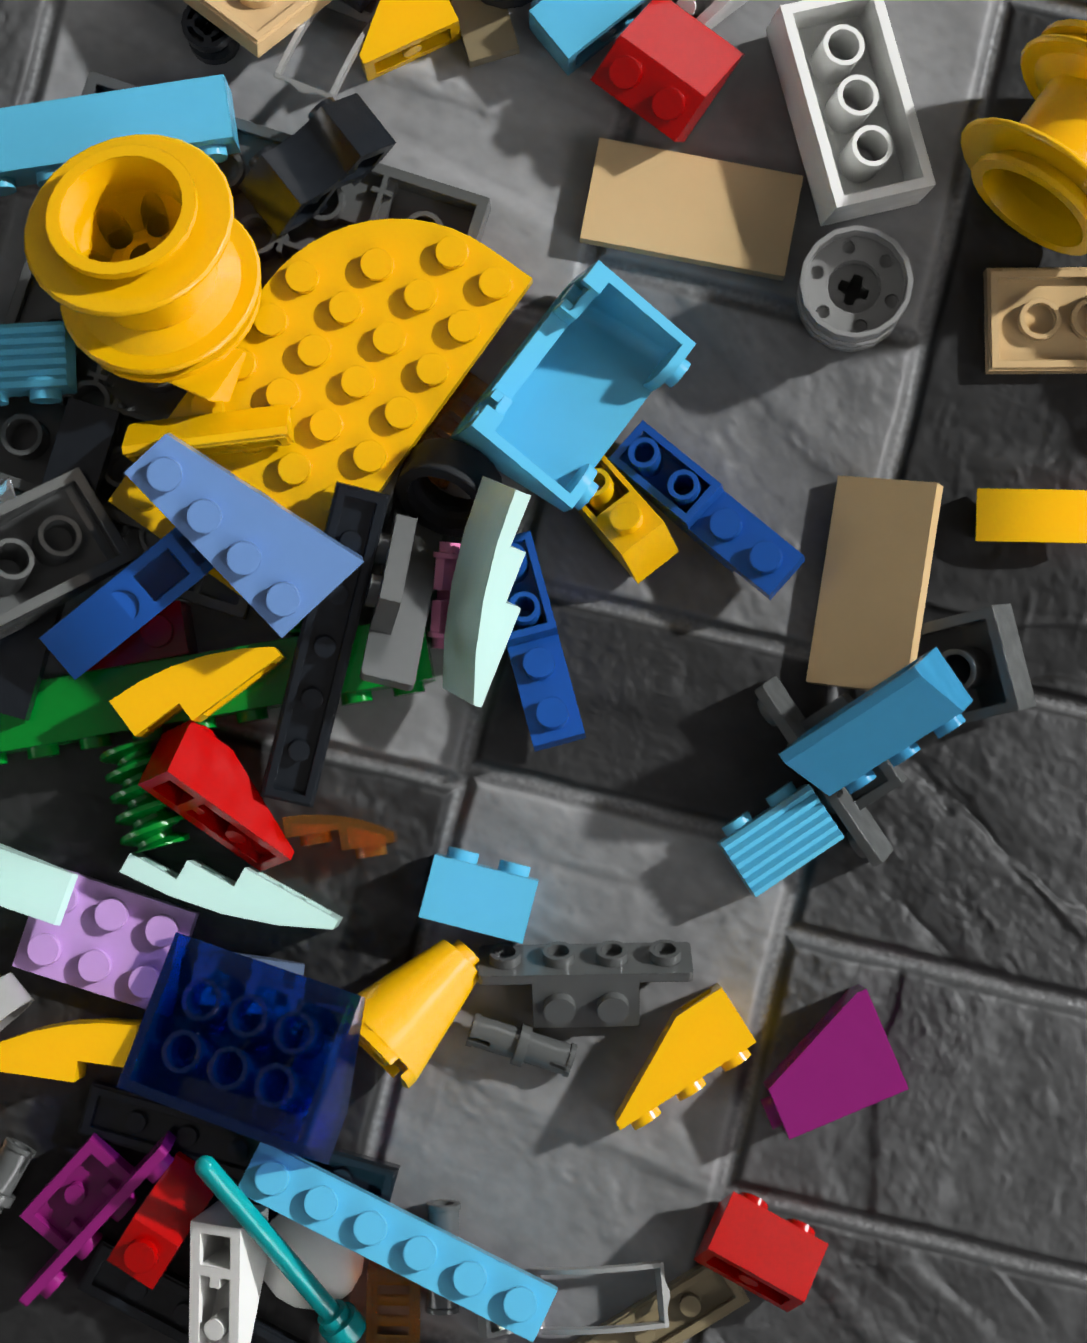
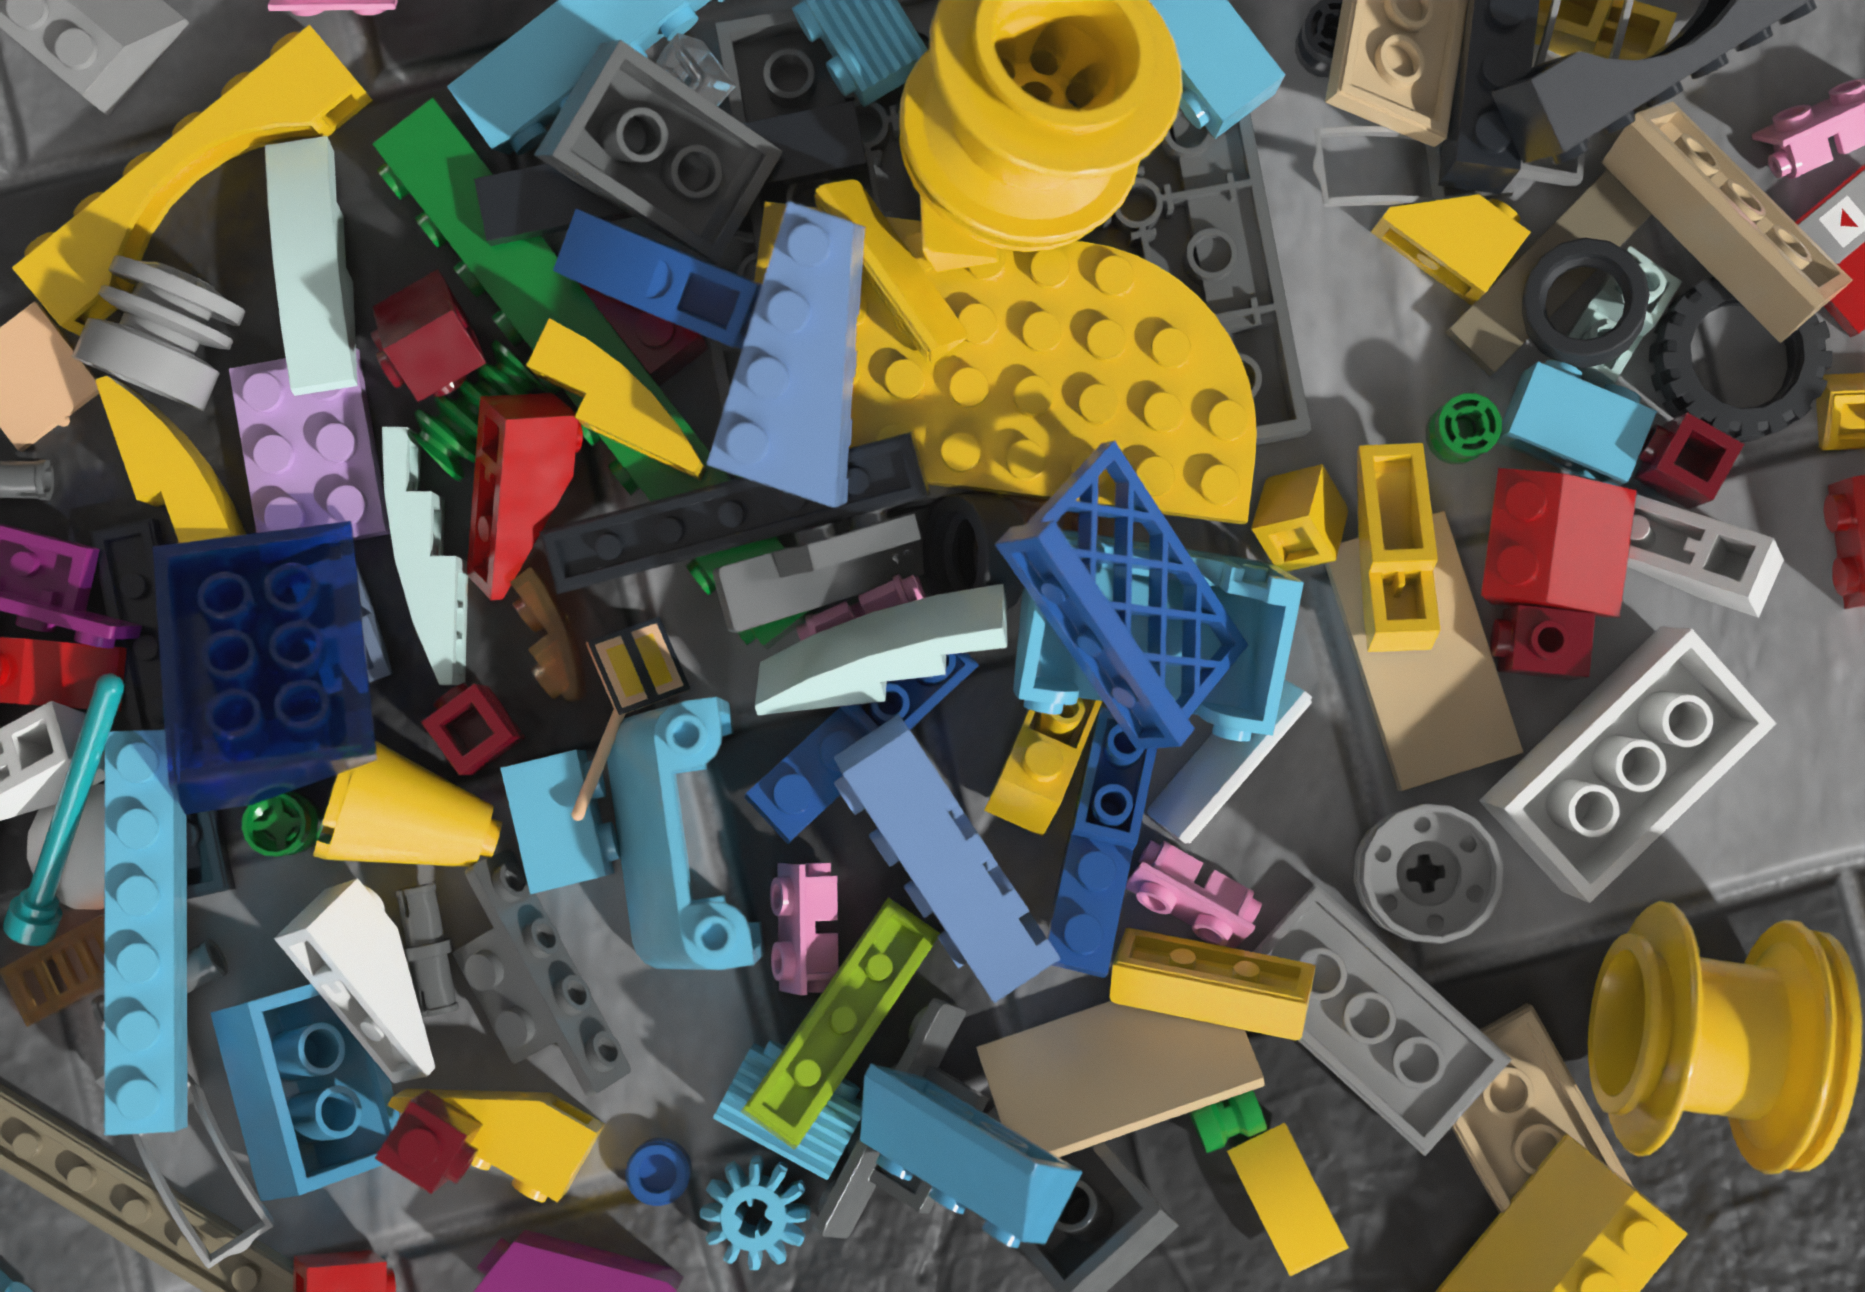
camera: 60 degrees right, 0 degrees up
(71, 804) = (426, 338): none -> dark red brick
(328, 152) = (1228, 217): black brick -> none
(367, 1111) = (268, 825): none -> green wheel
(376, 923) = (472, 727): none -> dark red brick
(401, 782) = (636, 672): none -> piece
(511, 1099) = (362, 973): none -> white slope
(532, 833) = (664, 917): none -> medium azure windscreen
(549, 242) = (1300, 518): none -> yellow panel
(550, 102) = (1453, 438): none -> green wheel
(552, 422) = (1099, 629): none -> blue fence
(575, 1183) = (302, 1092): none -> dark azure slope
(608, 184) = (1396, 548): none -> yellow slope
(630, 752) = (801, 957): none -> bright pink hinge
(657, 627) = (944, 857): none -> medium blue wedge
(666, 1108) = (430, 1143): none -> dark red brick
(701, 402) = (1218, 771): none -> white slope
(732, 117) = (1543, 642): none -> dark red brick
(737, 768) = (840, 1024): none -> lime tile
(773, 961) = (658, 1171): none -> blue tile
(801, 456) = (1218, 912): none -> bright pink hinge
(833, 921) = (732, 1213): none -> medium azure gear
(850, 485) = (1212, 983): none -> yellow slope
(935, 388) = (1383, 1023): none -> light grey tile
(952, 528) = (1226, 1119): none -> green wheel

